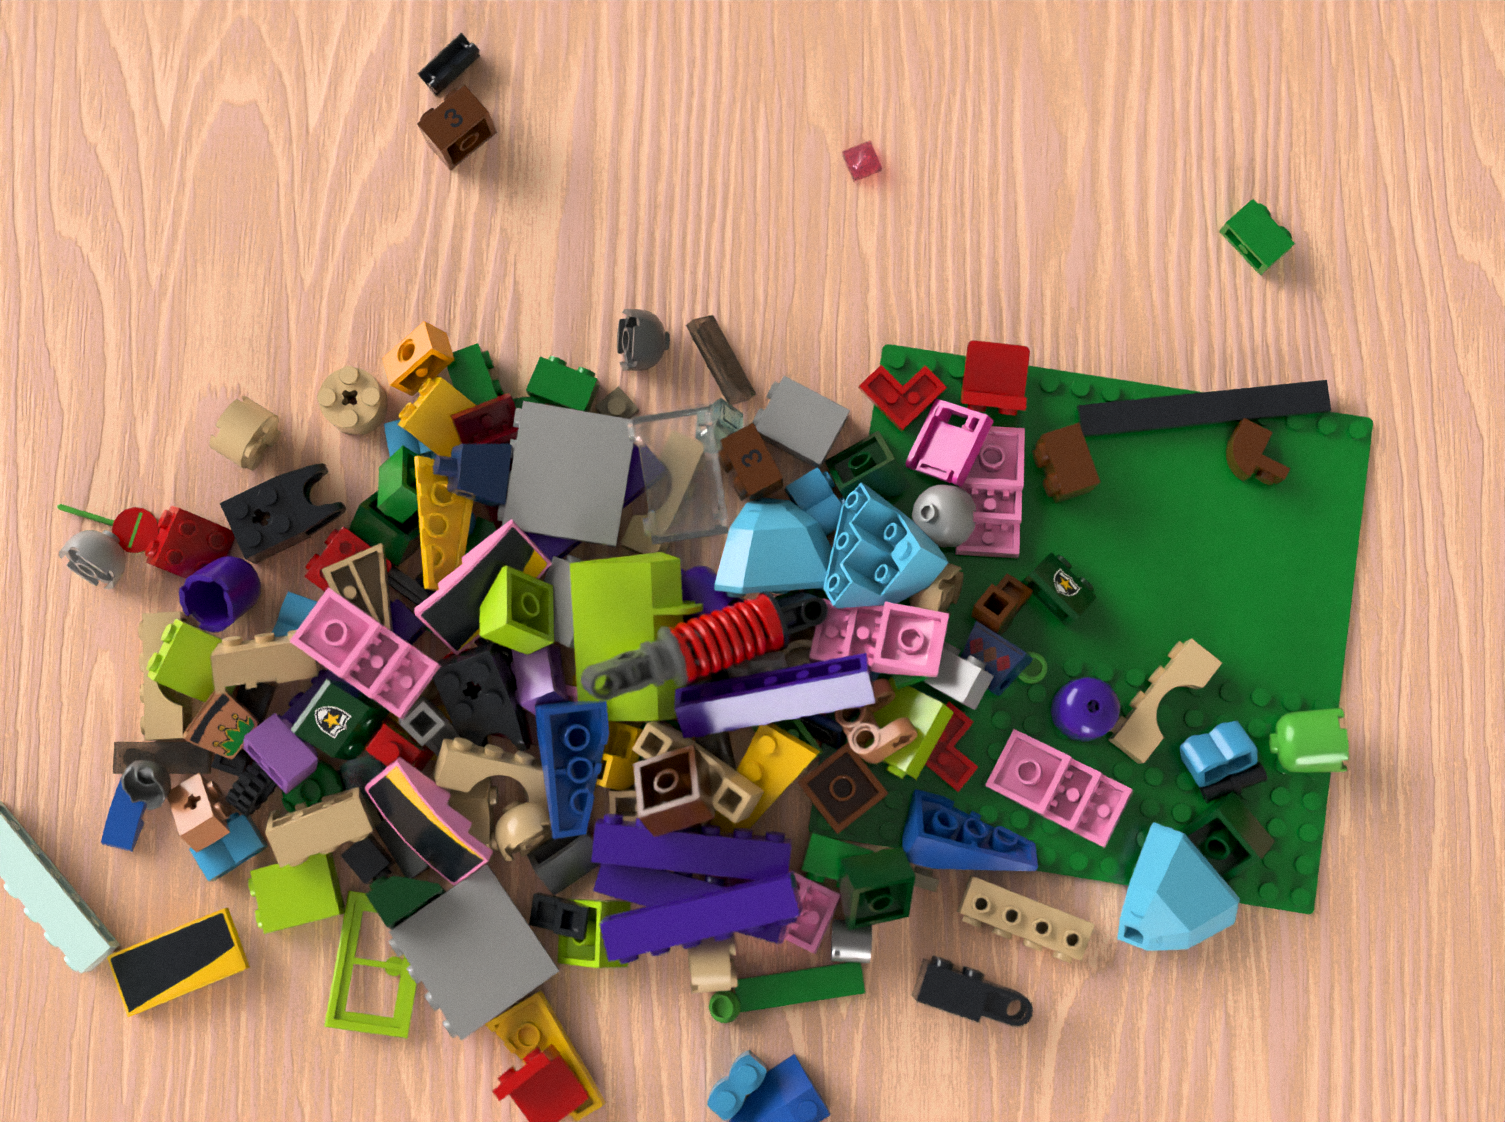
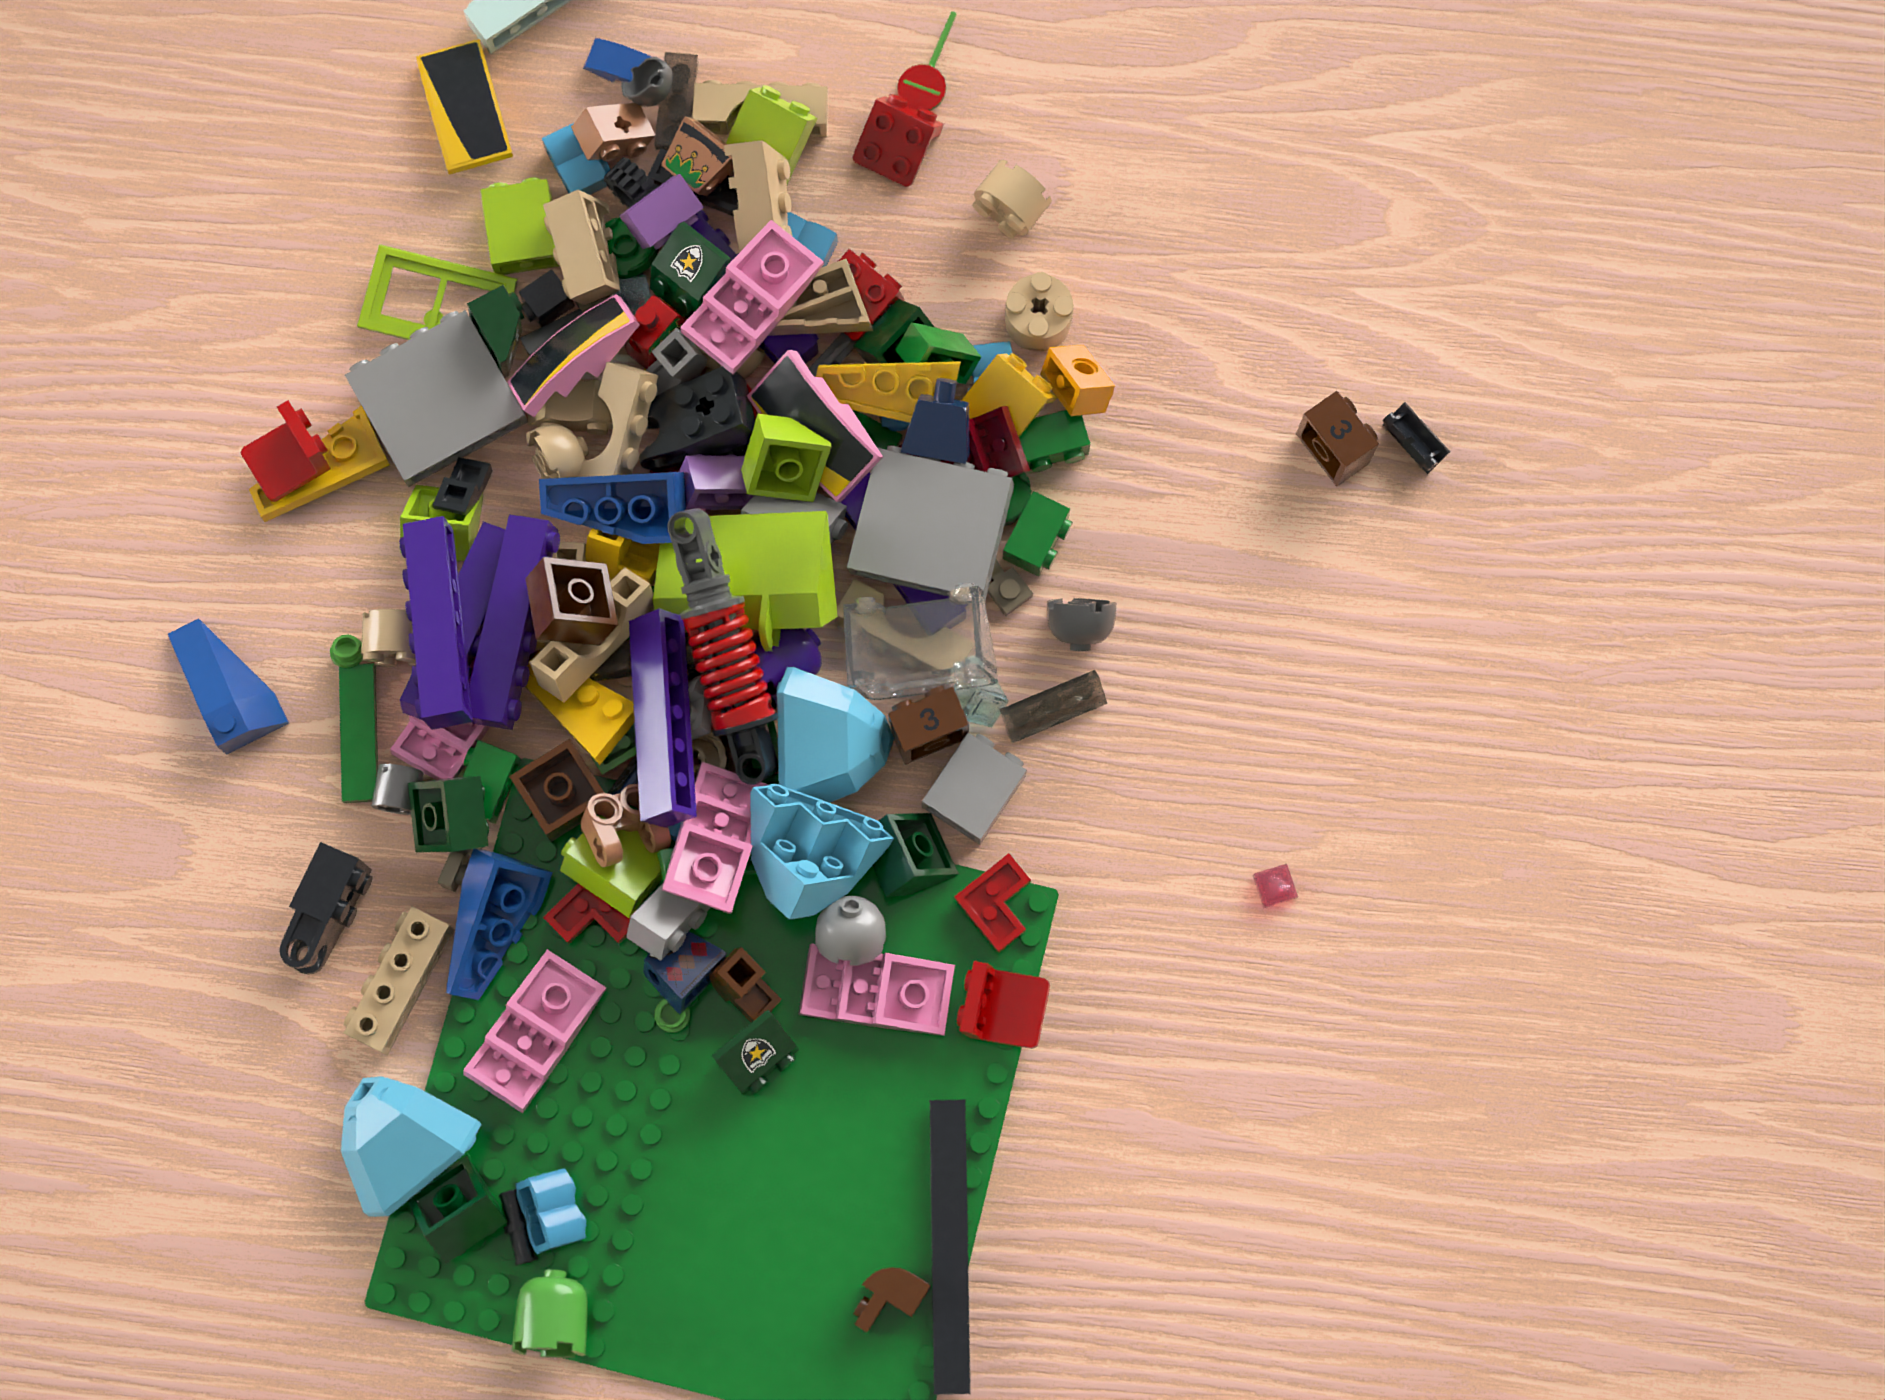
camera: 90 degrees right, 5 degrees down
(95, 557) = (894, 45): light grey cylinder -> none
(220, 593) = (840, 164): dark purple cylinder -> none
(290, 512) = (923, 240): black brick -> none
(563, 860) = (517, 491): dark grey brick -> none
(730, 1091) = (263, 656): dark azure brick -> none
(815, 497) = (884, 794): dark azure brick -> none
(941, 592) = (758, 915): tan cylinder -> none
(945, 449) = (926, 943): container -> none
(1065, 463) = (895, 1072): reddish brown brick -> none
(1071, 711) = (631, 1075): dark purple cylinder -> none
(1138, 732) = (585, 1125): tan arch -> none
(1257, 236) = (1151, 1335): green brick -> none

